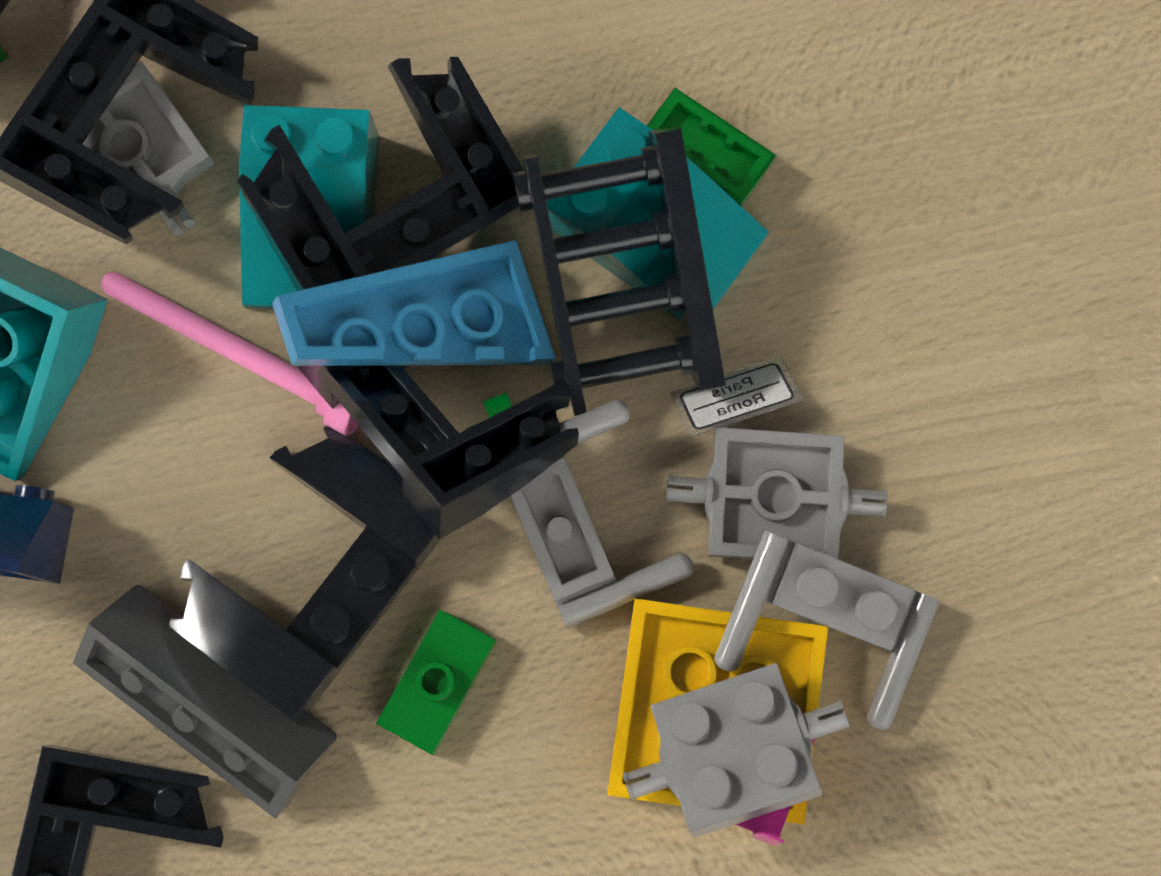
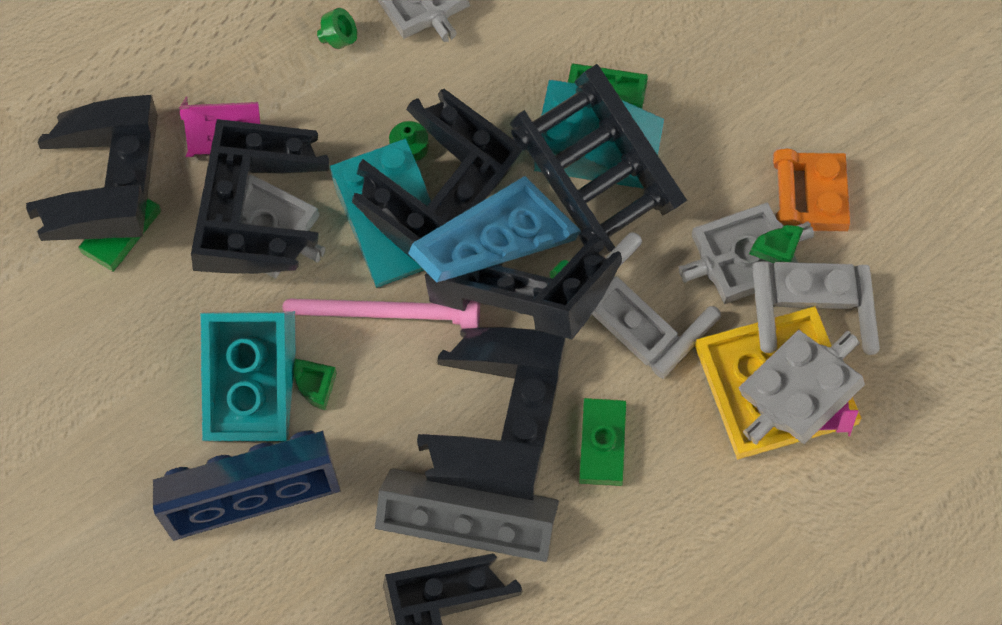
camera: 25 degrees left, 15 degrees down
(94, 411) = (314, 381): none -> green tile
(386, 106) = (415, 136): none -> green tile
(746, 395) = (694, 210): clear sticker -> none
(821, 513) = (777, 244): none -> green tile
(940, 450) = (824, 189): none -> orange plate

